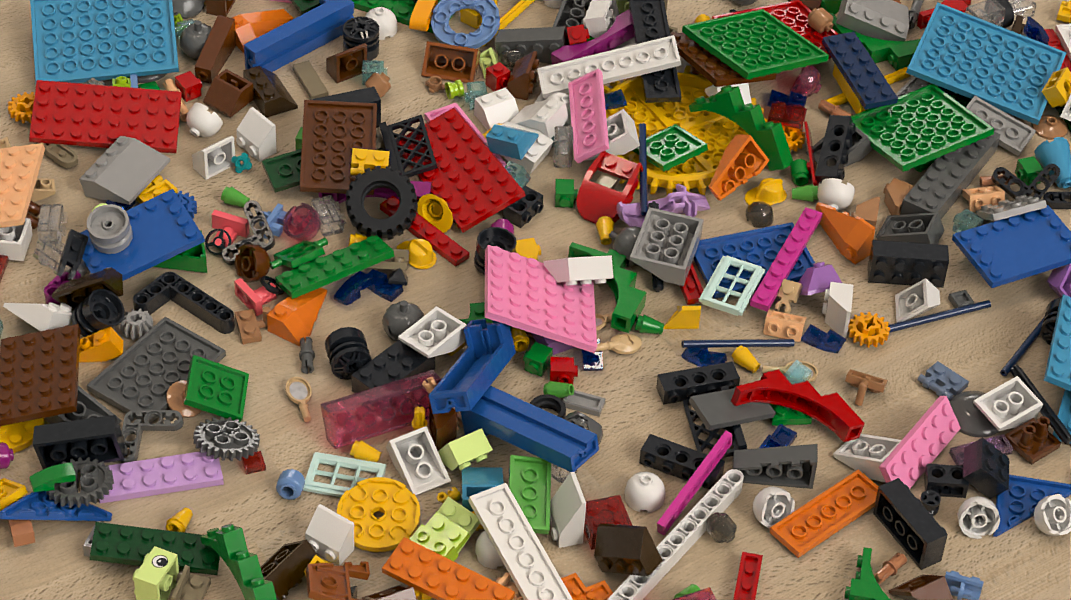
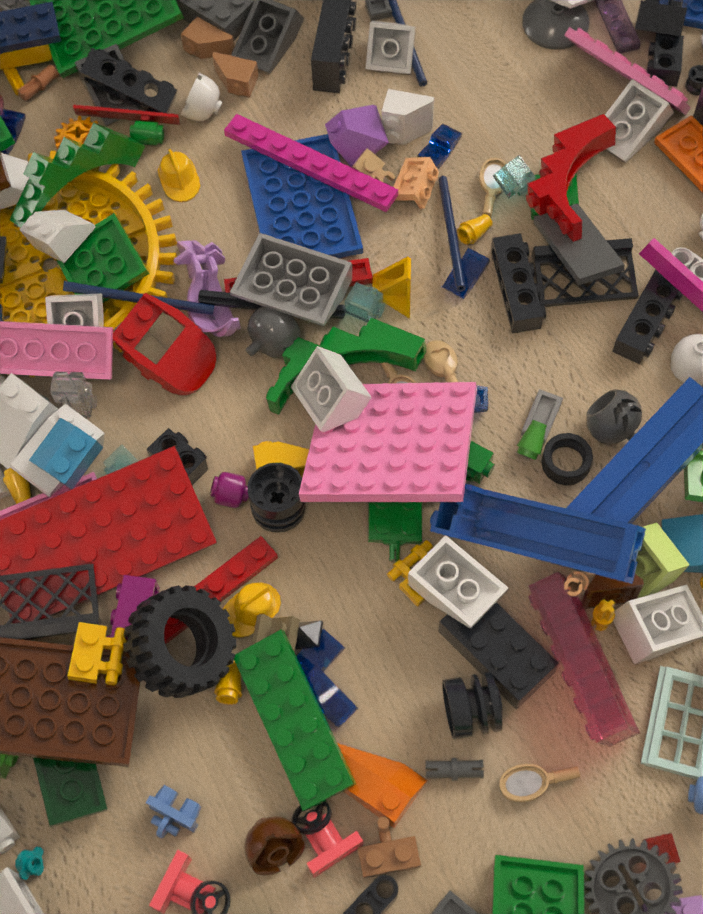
camera: 80 degrees left, 20 degrees up
(234, 197) = (108, 876): bright green cone -> none
(257, 238) = (221, 840): beam -> none
(299, 254) = (254, 774): green plate -> none
(302, 222) = (192, 767): clear pink cylinder -> none
(329, 211) = (167, 729): clear brick -> none
(364, 451) = (642, 696): yellow cone -> none
(400, 318) = (403, 627): dark grey piece -> none
(435, 211) = (184, 569): yellow piece -> none
(563, 369) = (495, 433): red brick -> none
(565, 193) = (156, 404): green brick -> none
(605, 227) = (231, 362): yellow cone -> none
(648, 325) = (414, 322): green cone -> none
(665, 297) = (364, 303): none -> clear light blue brick
(687, 118) = (56, 232): none -> white slope
(738, 164) = (140, 182): orange wedge -> none
(744, 297) = (346, 243): light aqua piece -> none
(760, 214) = (216, 185): clear smoke hair -> none
(778, 465) = (658, 206): dark grey wedge -> none
(781, 437) = (611, 216): clear blue slope -> none
(789, 116) = (45, 129): clear red plate -> none
(805, 193) = (185, 131): bright green cone -> none
(849, 234) = (273, 96): orange wedge -> none
(864, 381) = (515, 110): medium nougat plate -> none
(868, 329) = (437, 90): light orange gear -> none
(943, 381) = (504, 39): sand blue plate -> none

